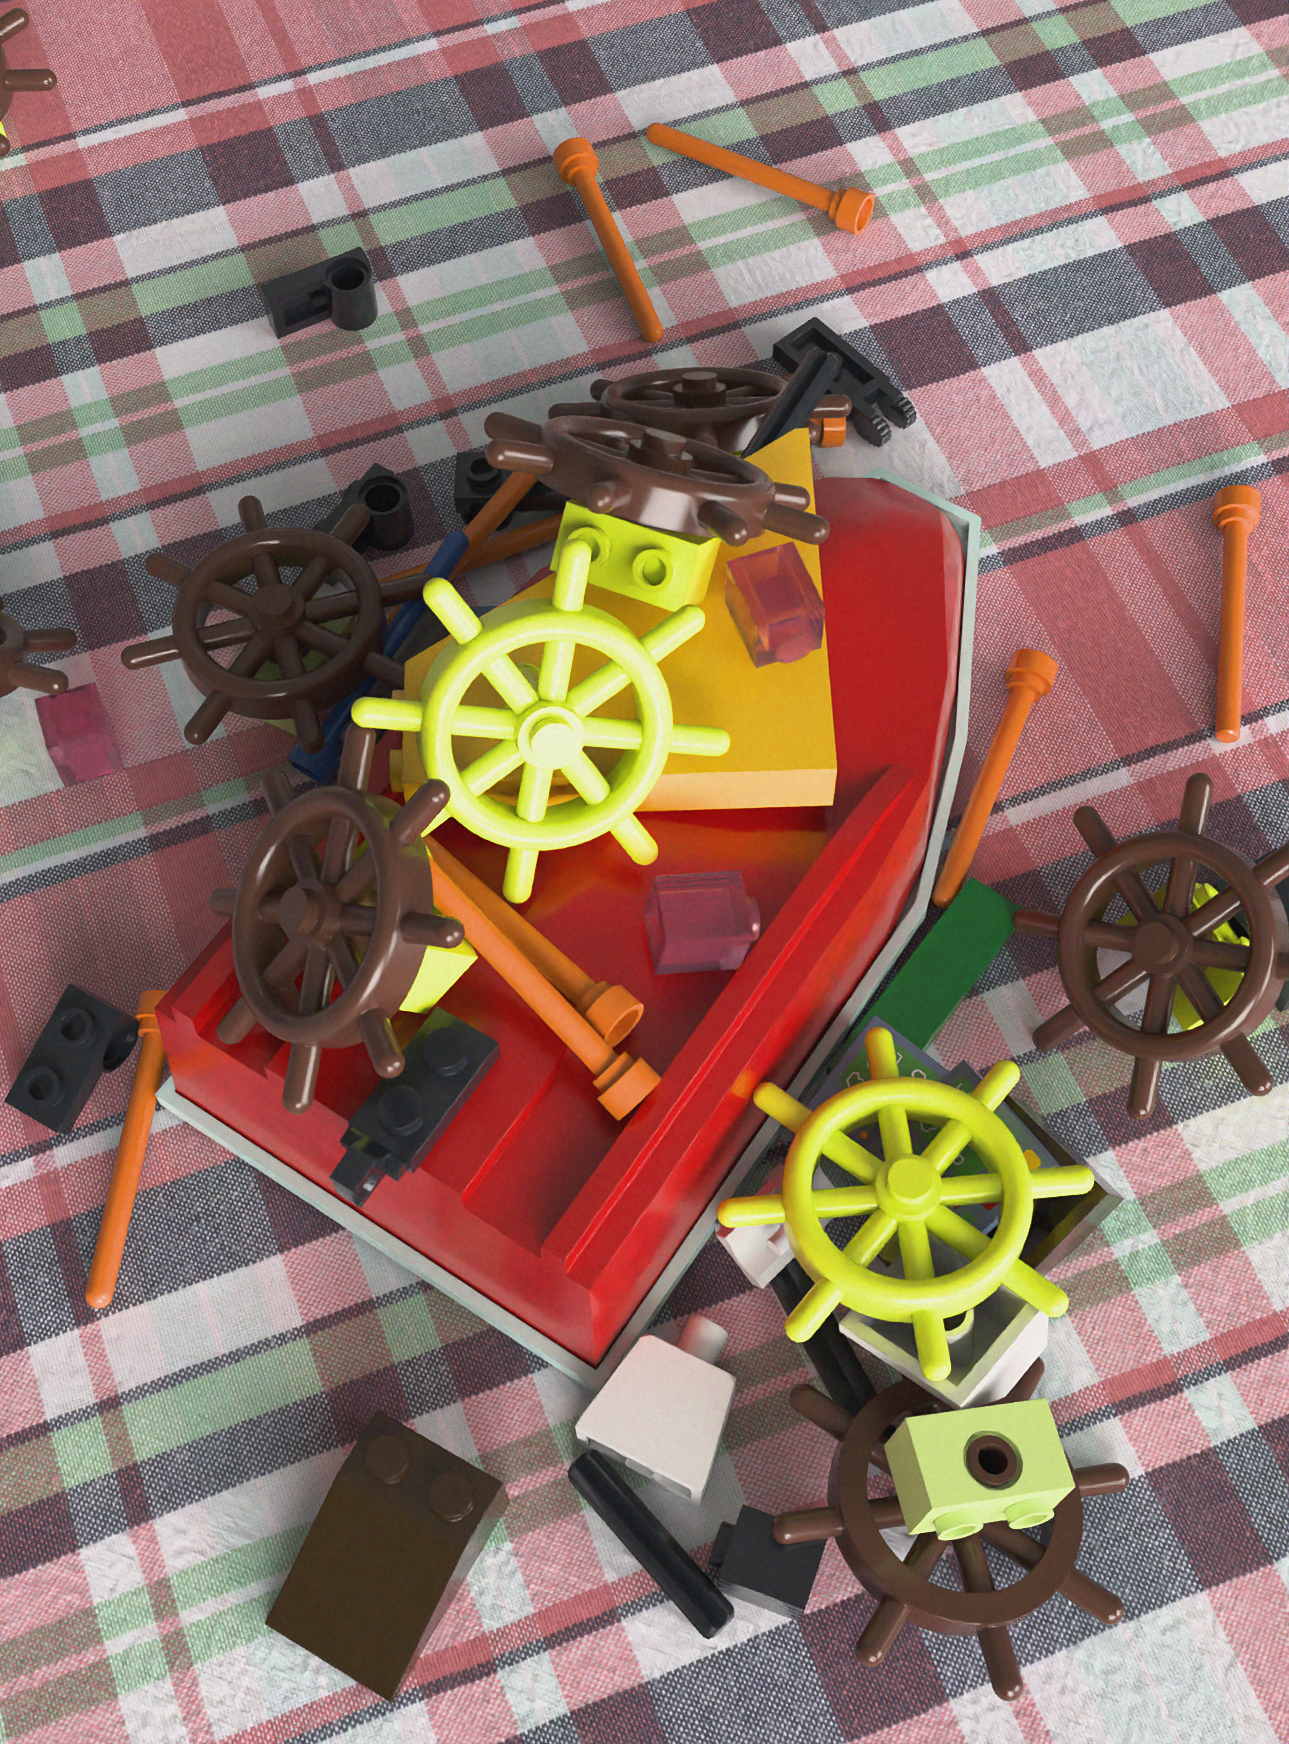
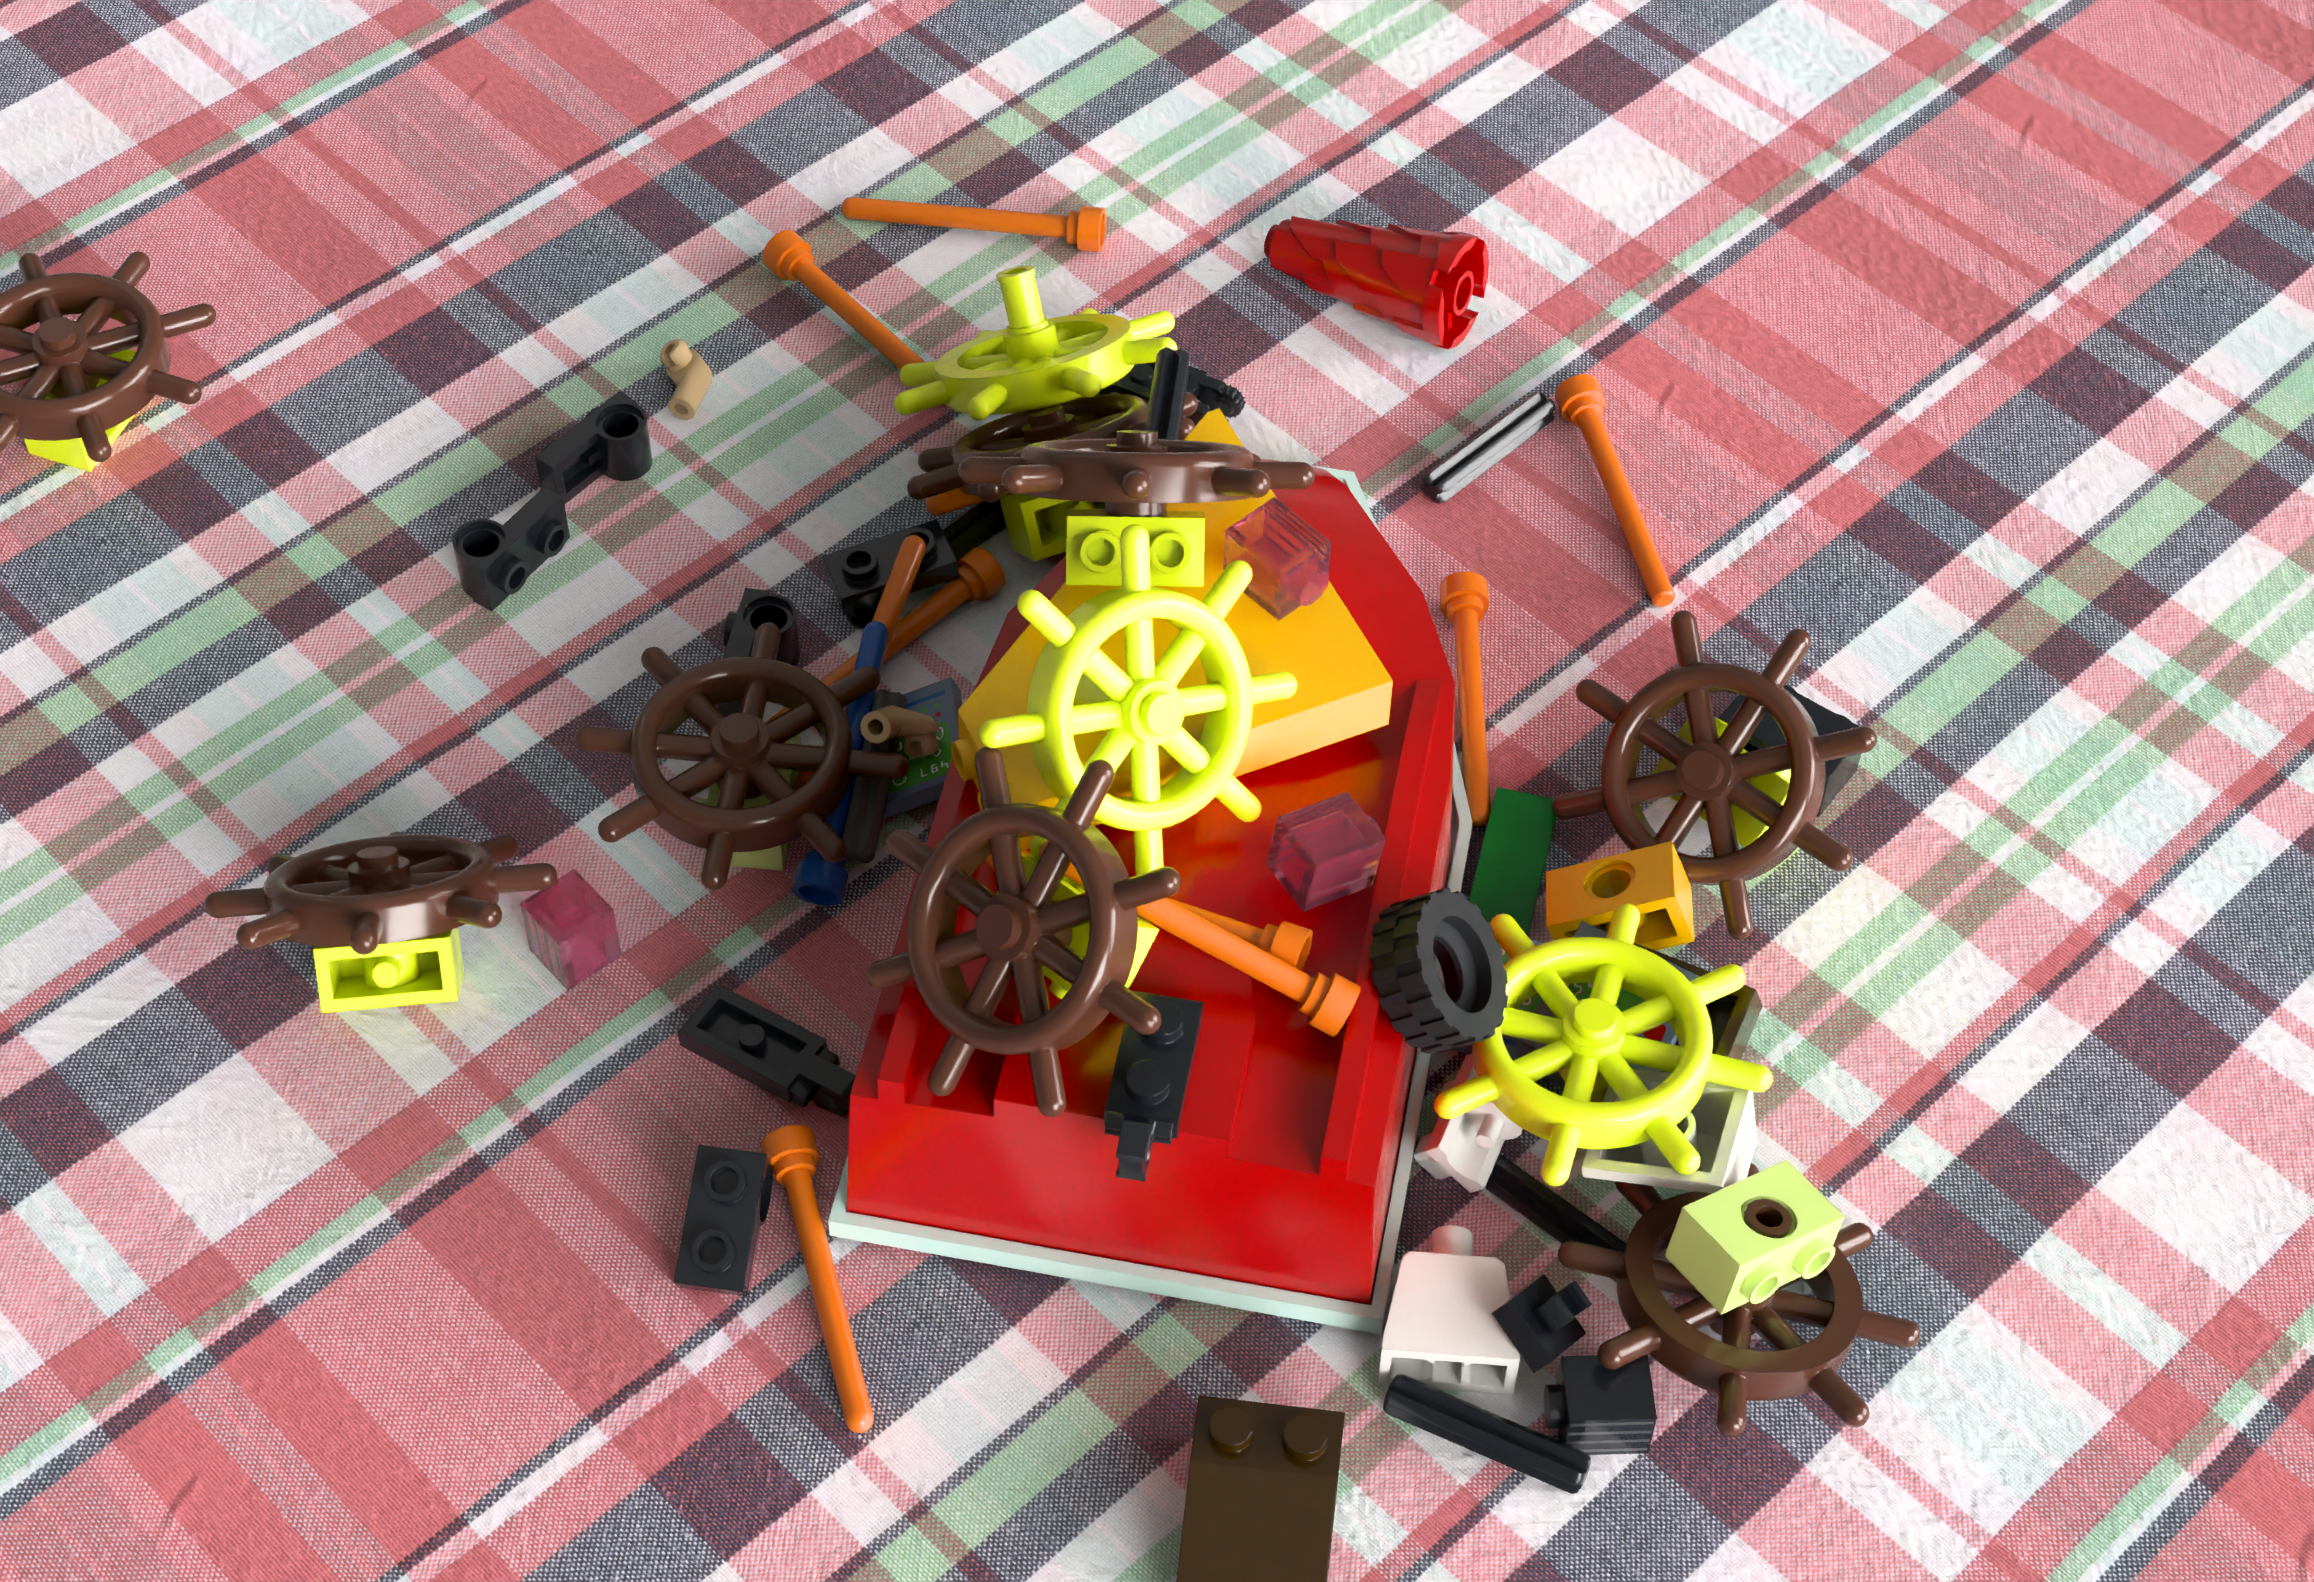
camera: 25 degrees left, 10 degrees down
(176, 892) = (767, 1051): none -> black hinge
(200, 370) = (500, 558): none -> black plate
(413, 634) = (895, 721): none -> tan arm
(441, 250) = (690, 376): none -> tan arm
(716, 1076) = (1408, 977): none -> black tyre
(724, 321) = (1034, 358): none -> neon yellow piece
(739, 1459) = (1543, 1320): none -> black tile
(1048, 1038) = (1642, 877): none -> yellow brick
(1107, 332) = (1389, 273): none -> red cone
(1126, 530) = (1488, 447): none -> axle

